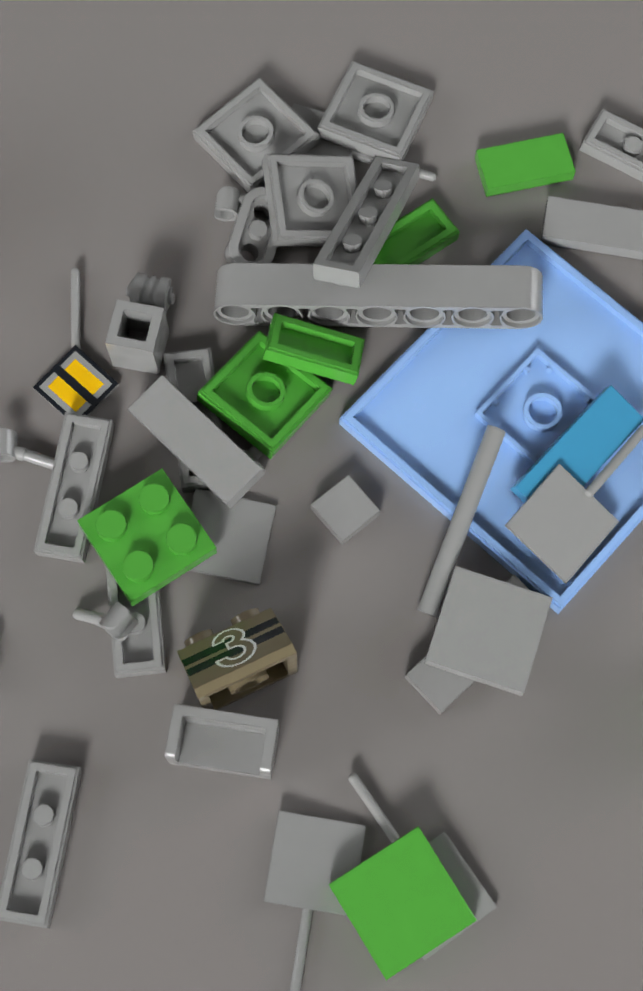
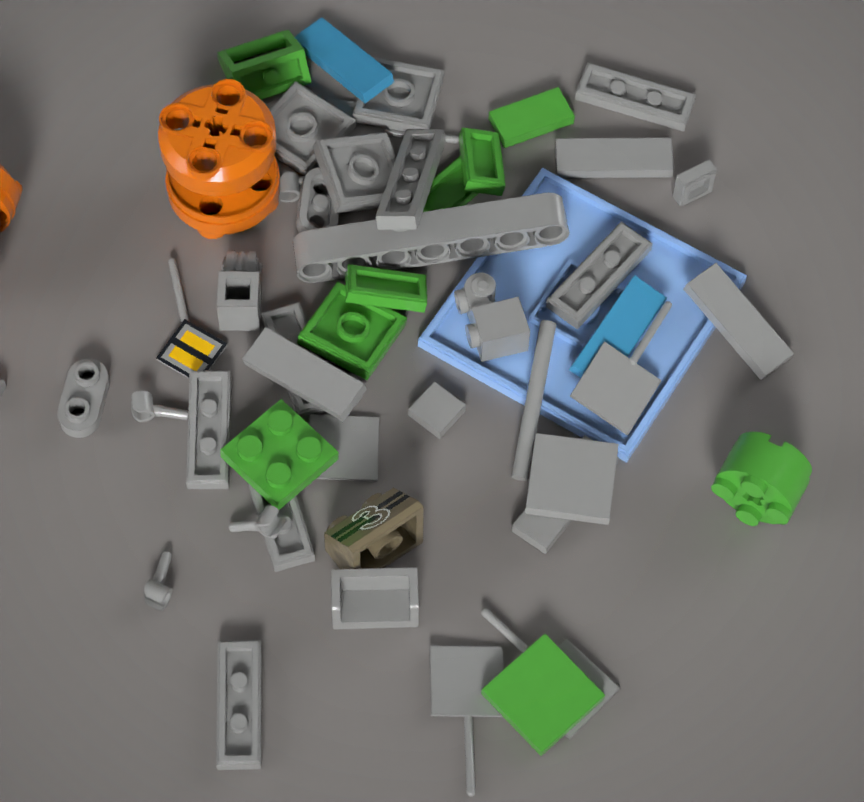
camera: 10 degrees left, 10 degrees down
(145, 156) = (220, 158): none -> orange piece
(228, 62) = (270, 72): none -> bright green tile
(320, 60) = (344, 60): none -> dark azure tile
(431, 422) = (494, 326): none -> light grey brick
(456, 211) = (481, 161): none -> bright green tile
(568, 375) = (599, 275): none -> light grey tile

